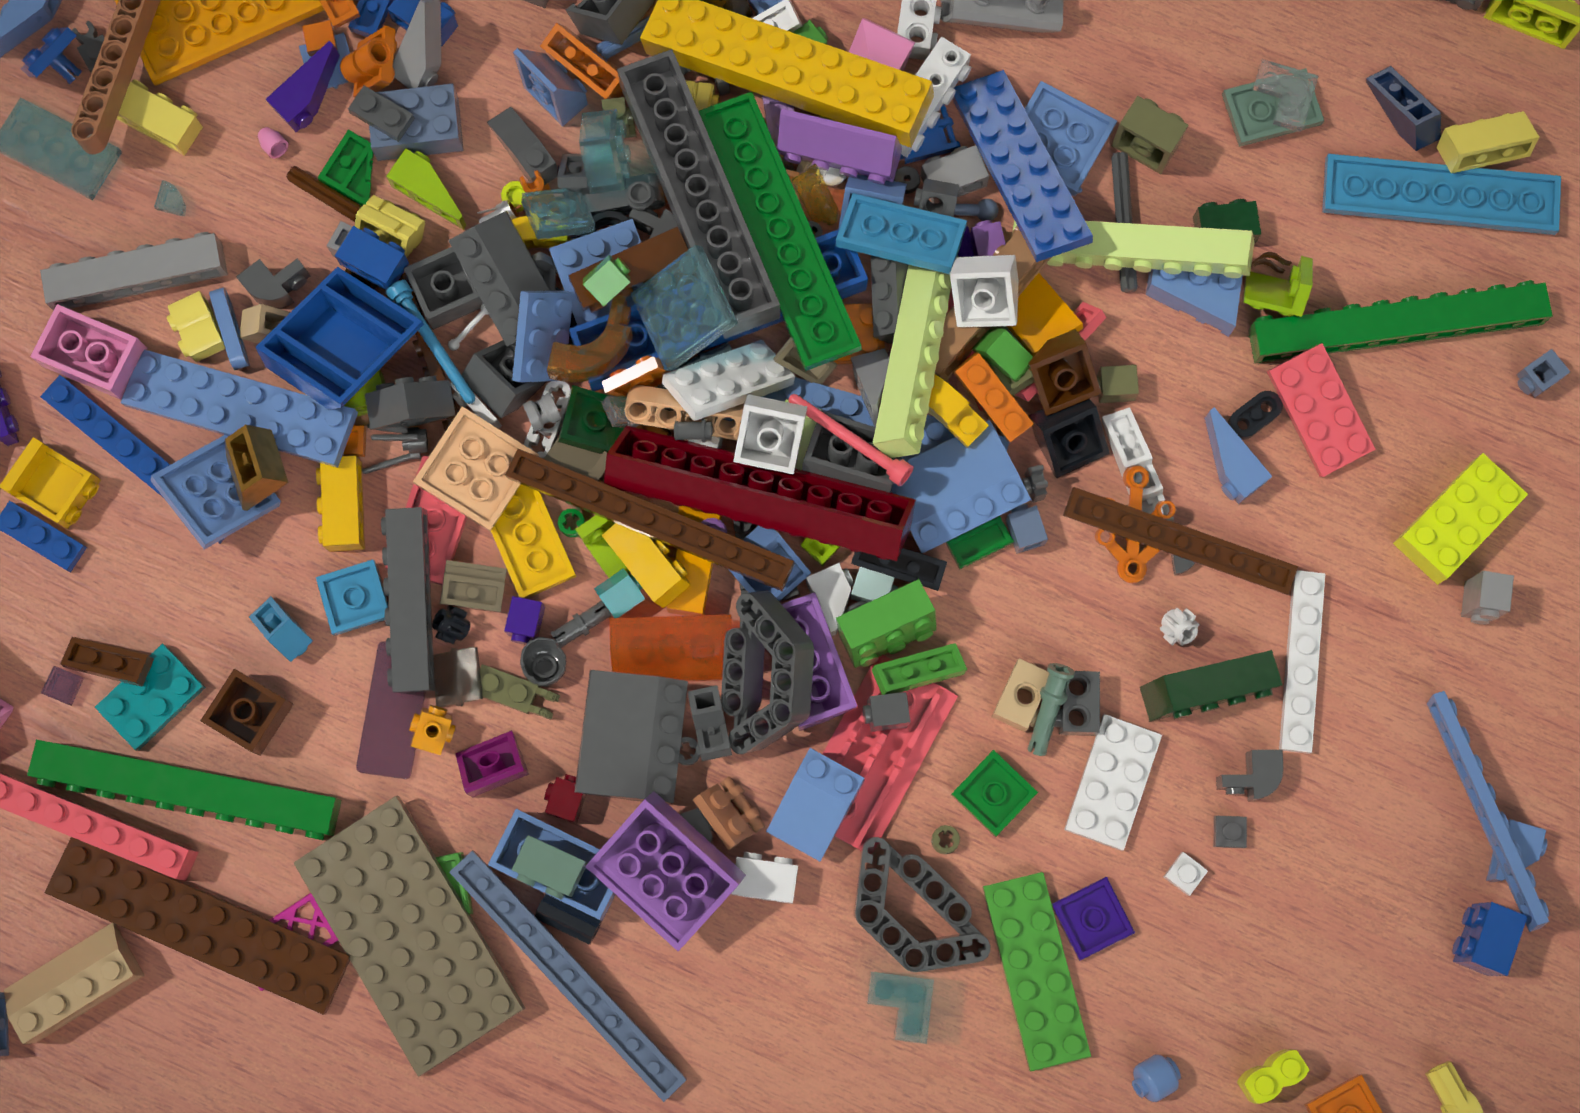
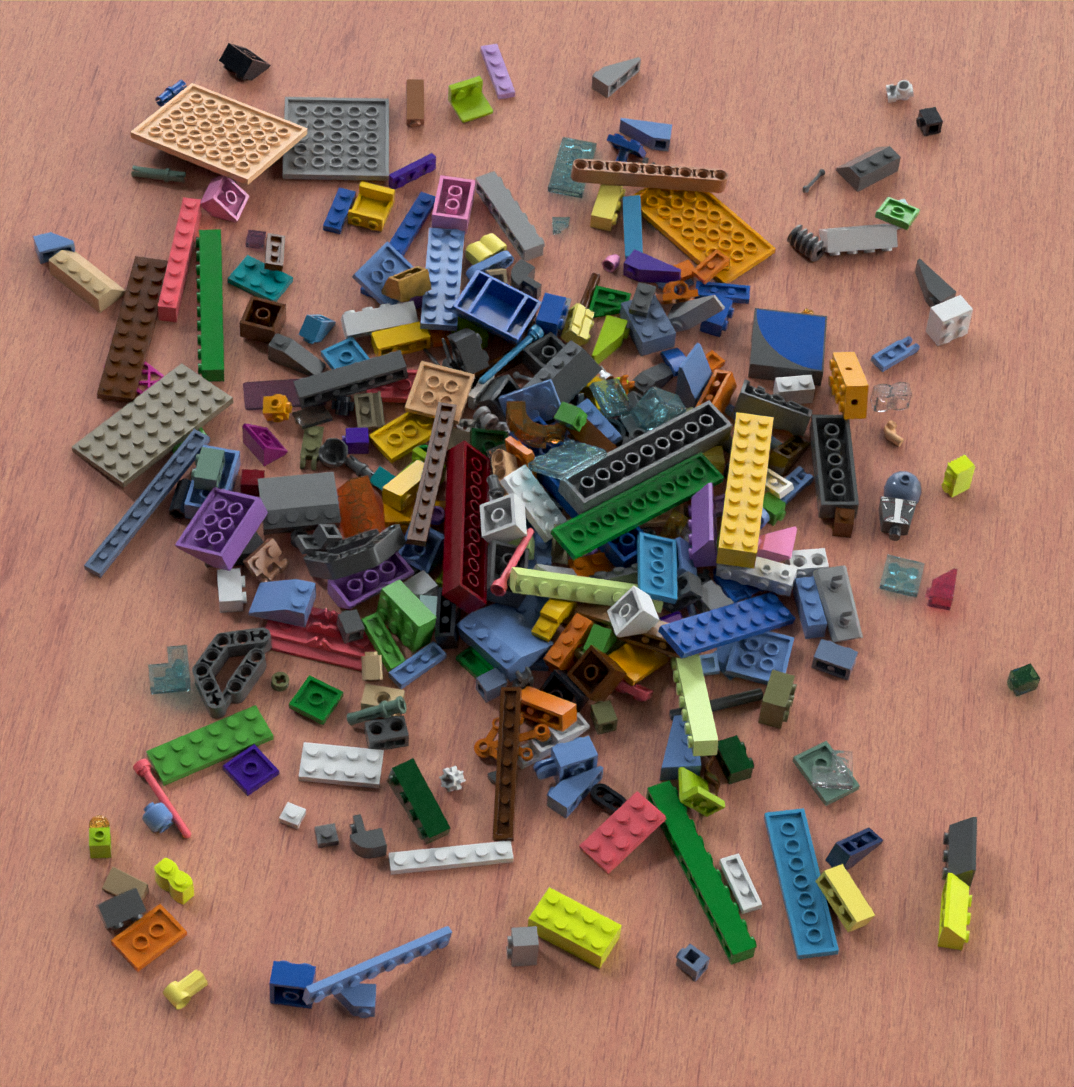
camera: 70 degrees right, 25 degrees down
(212, 90) = (632, 224): none -> dark azure tile
(296, 529) = (371, 320): none -> white brick
(331, 676) = (294, 356): none -> dark grey slope
(493, 99) = (673, 359): none -> blue slope
(504, 47) = (714, 360): none -> orange plate
(965, 628) = (417, 665): none -> medium blue plate
(971, 697) = (372, 666): none -> tan brick
(997, 43) = (809, 607): none -> medium blue brick
(1062, 1081) = (143, 769): none -> coral piece
(1088, 37) = (834, 659): none -> sand blue brick
(1098, 459) = (548, 709): none -> orange brick
(1195, 452) = (568, 760): none -> medium blue brick
(1427, 274) = (740, 883): none -> white plate

